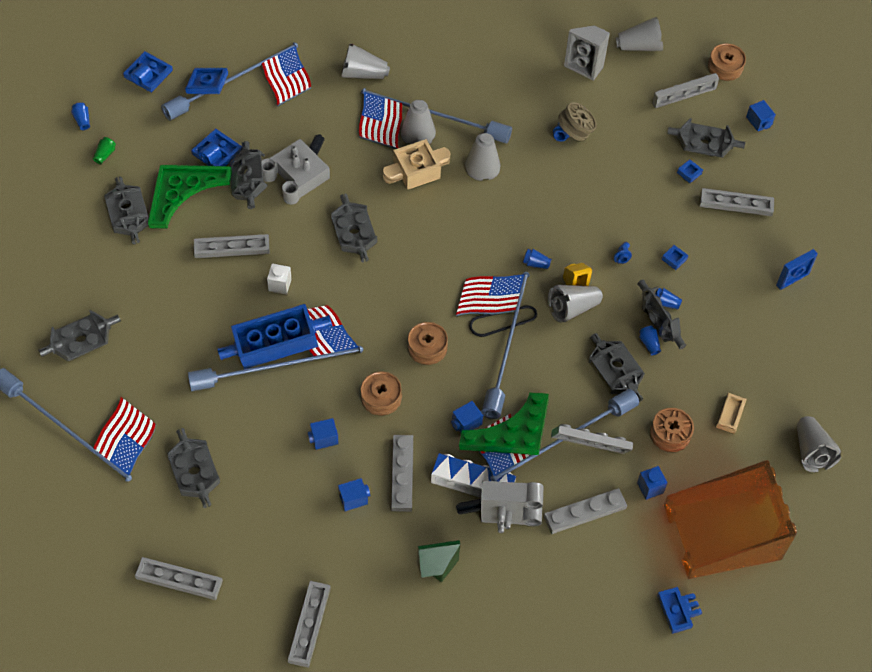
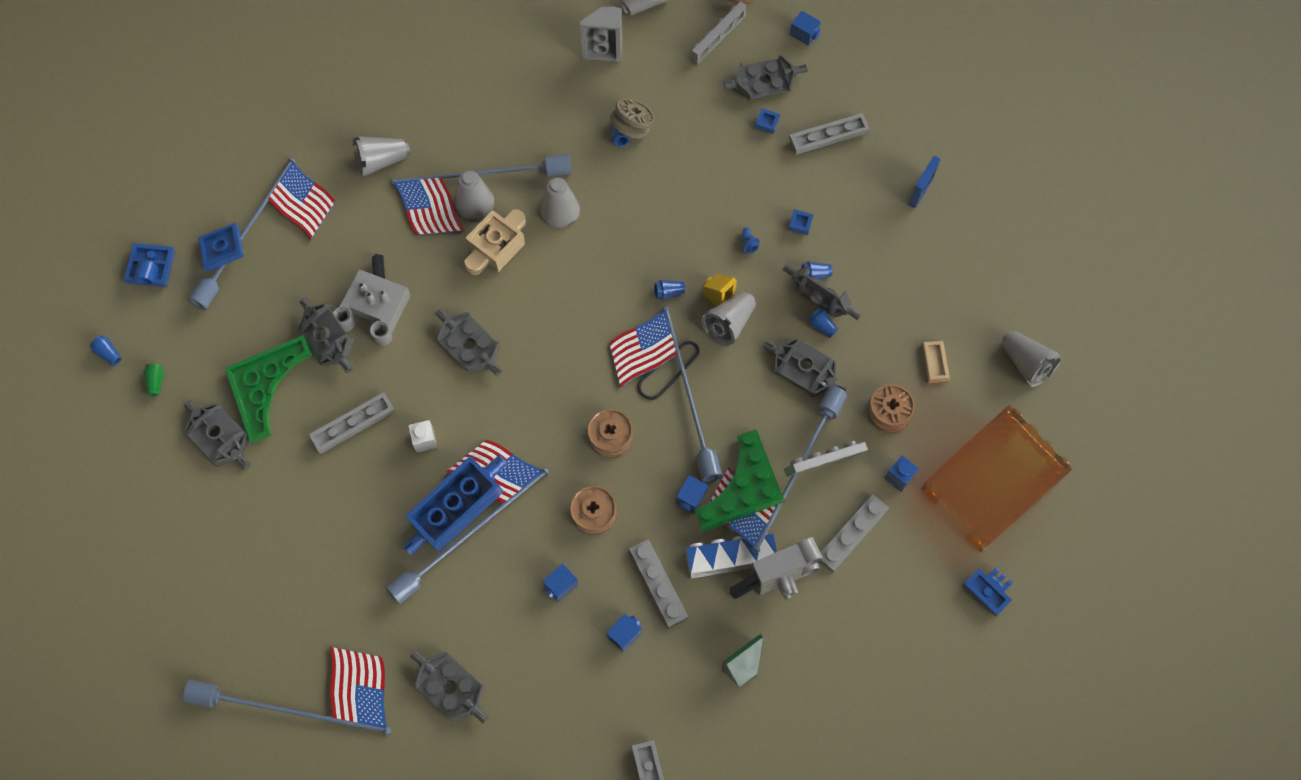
camera: 25 degrees left, 10 degrees up
(93, 327) = (232, 612): dark grey plate -> none
(216, 149) = (276, 321): blue plate -> none

